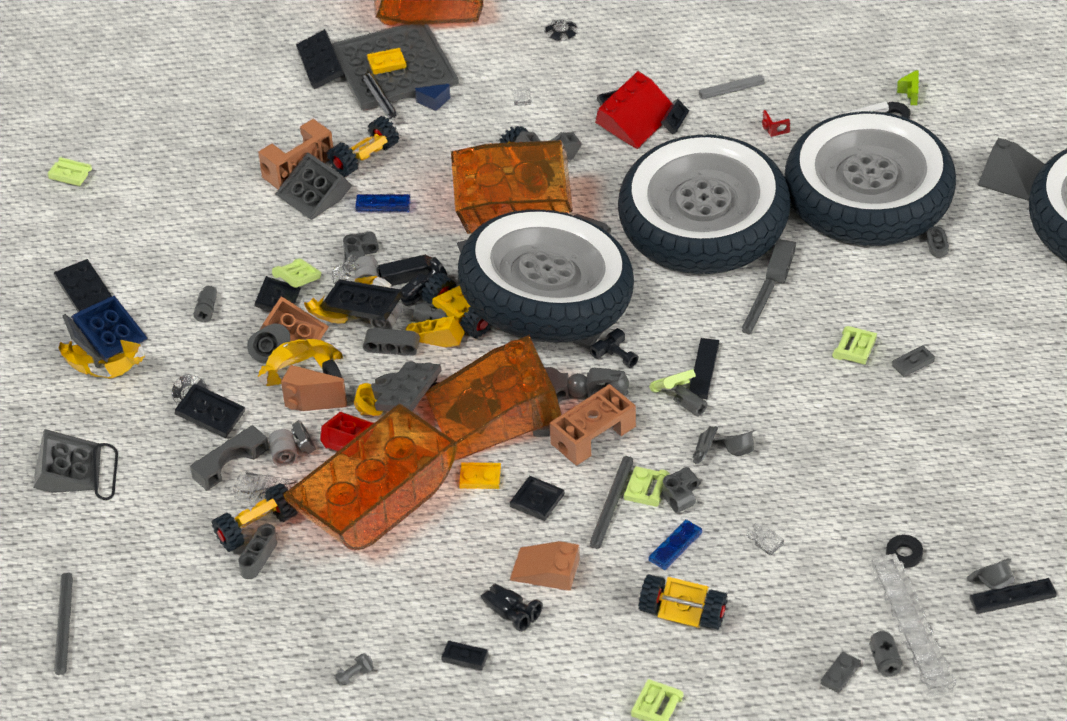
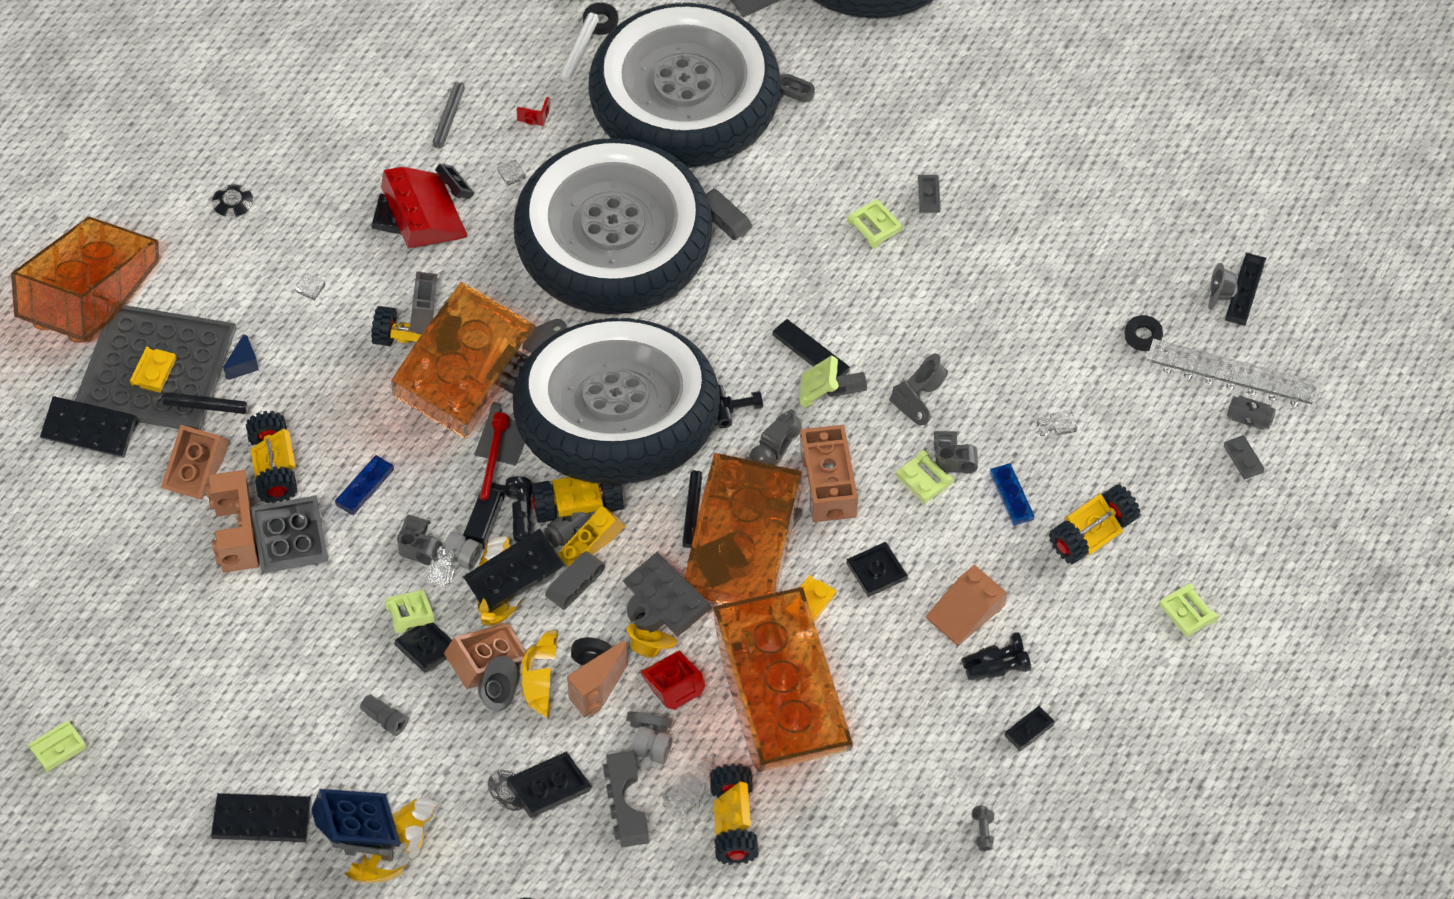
camera: 60 degrees left, 10 degrees up
(257, 551) = (771, 825): dark grey beam -> none
(338, 114) = (193, 460): none -> nougat slope
(438, 250) = (500, 423): none -> red piece
(611, 502) = (924, 514): dark grey axle -> none
(758, 306) = (765, 265): dark grey axle -> none

